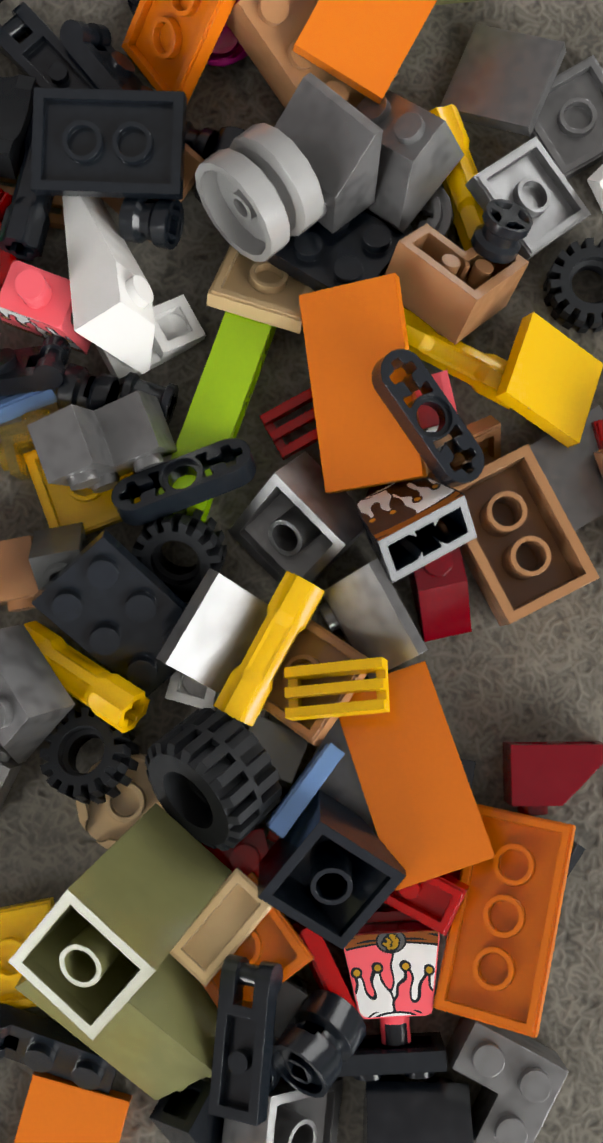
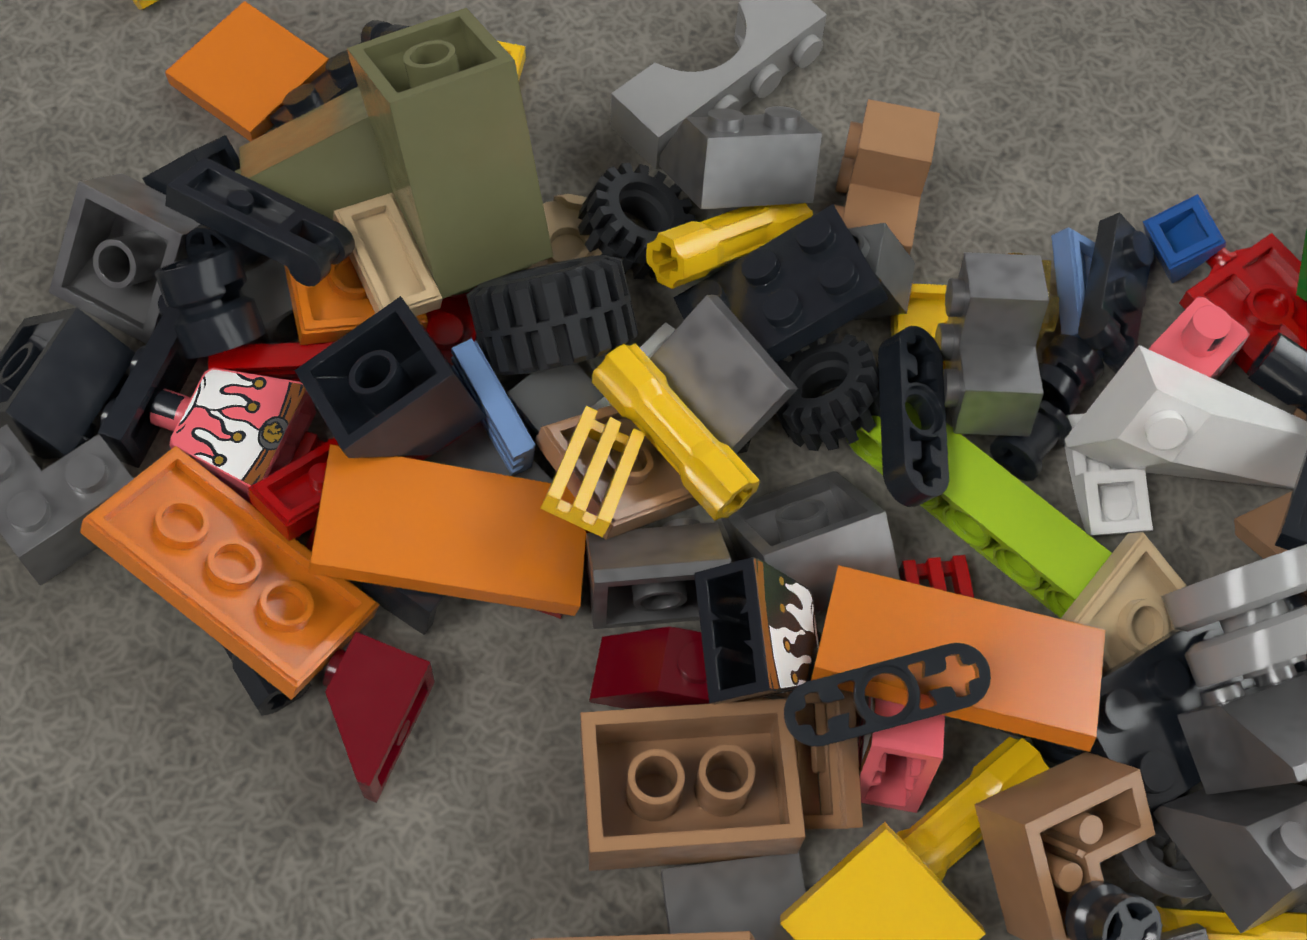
camera: 105 degrees right, 20 degrees down
(152, 221) = (1255, 512): black wheel -> none

